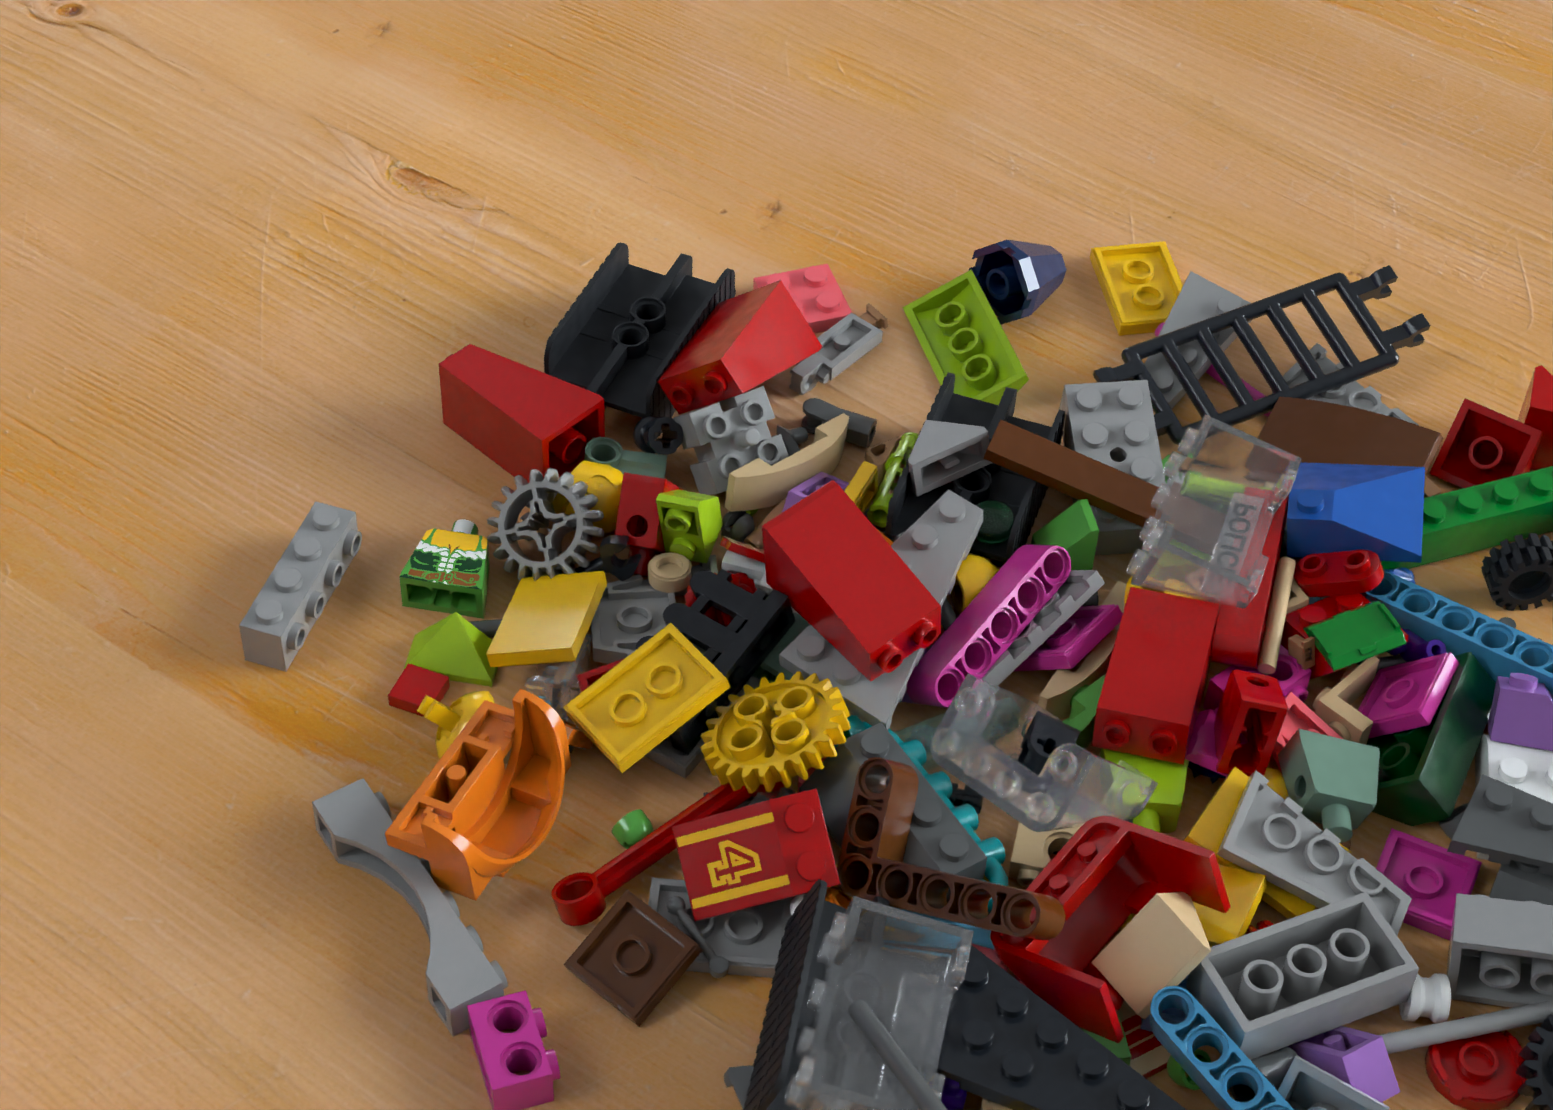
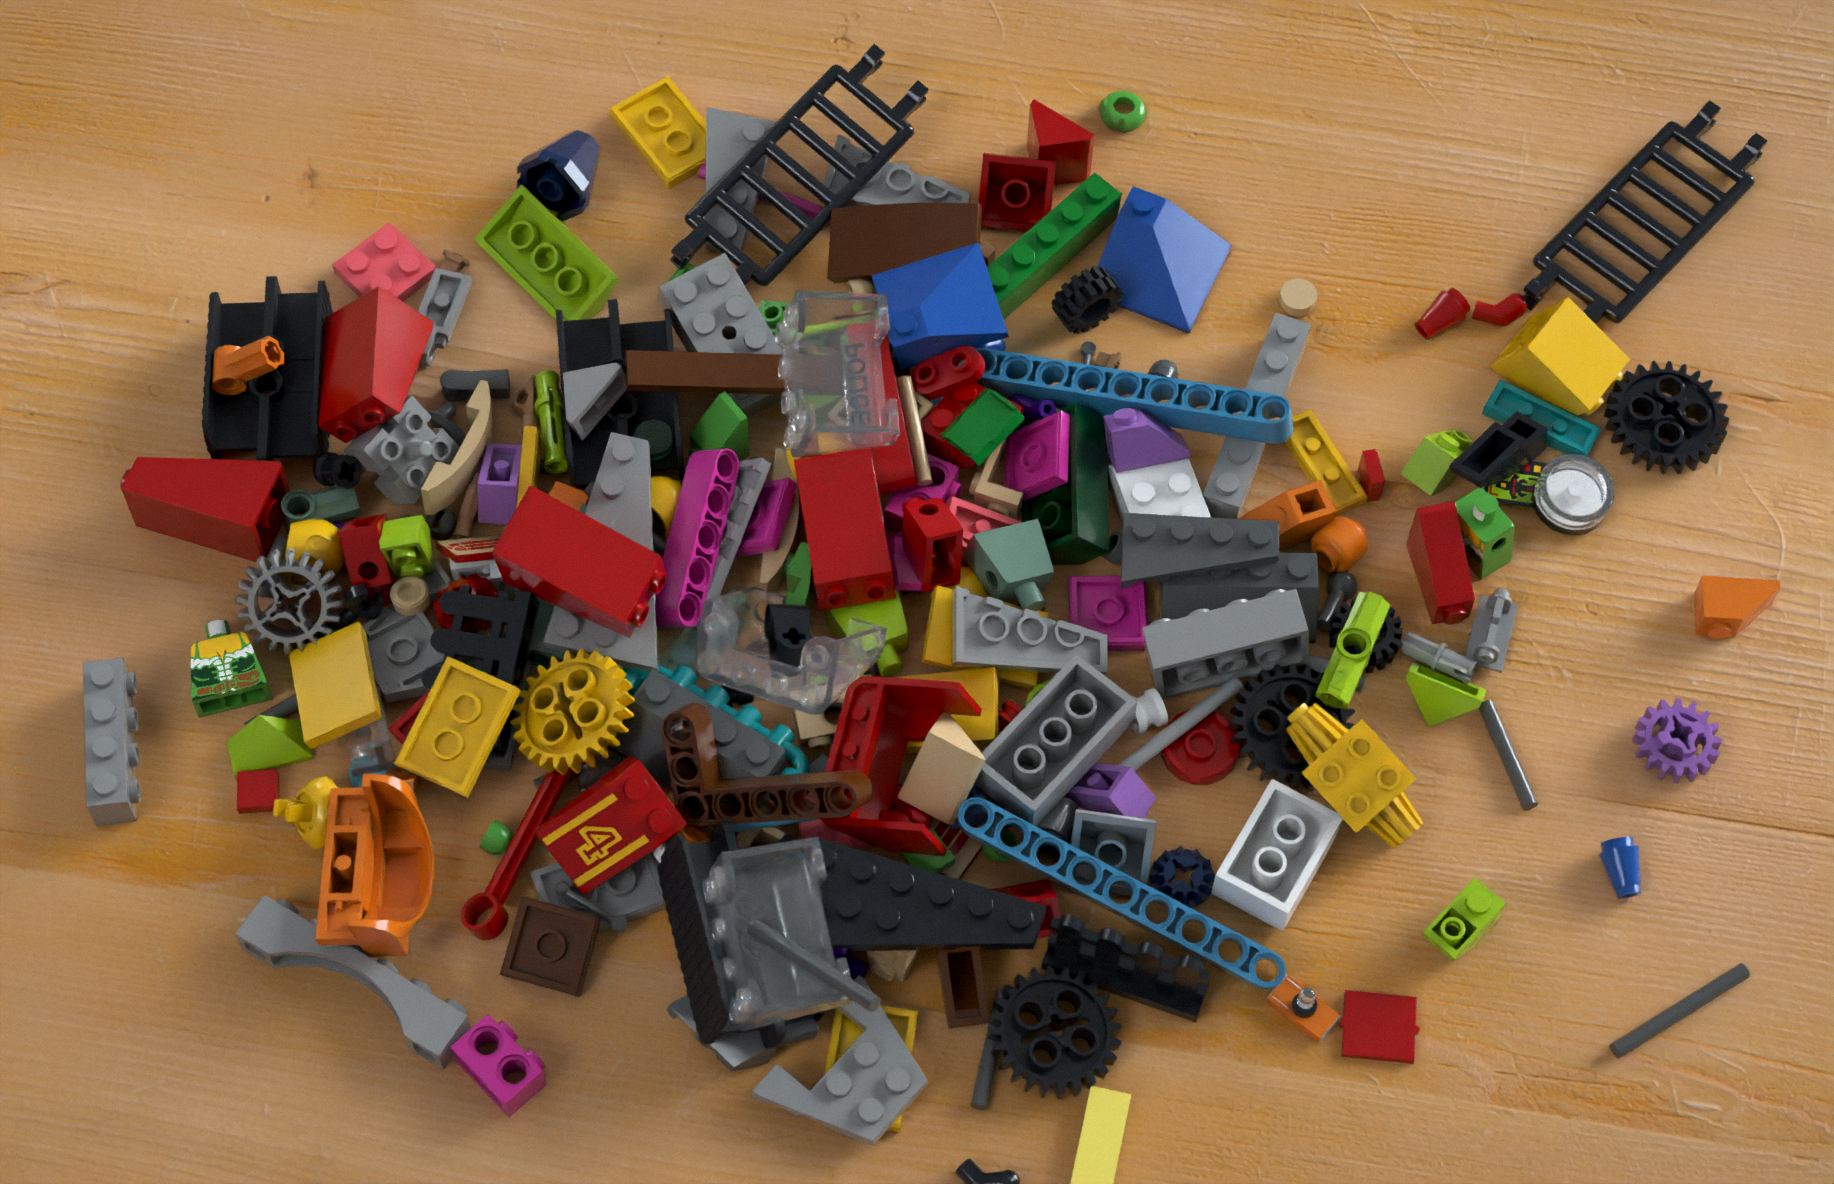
camera: 25 degrees left, 15 degrees up
(616, 306) = (237, 364): none -> orange piece
(1302, 650) = (946, 454): medium nougat piece -> none

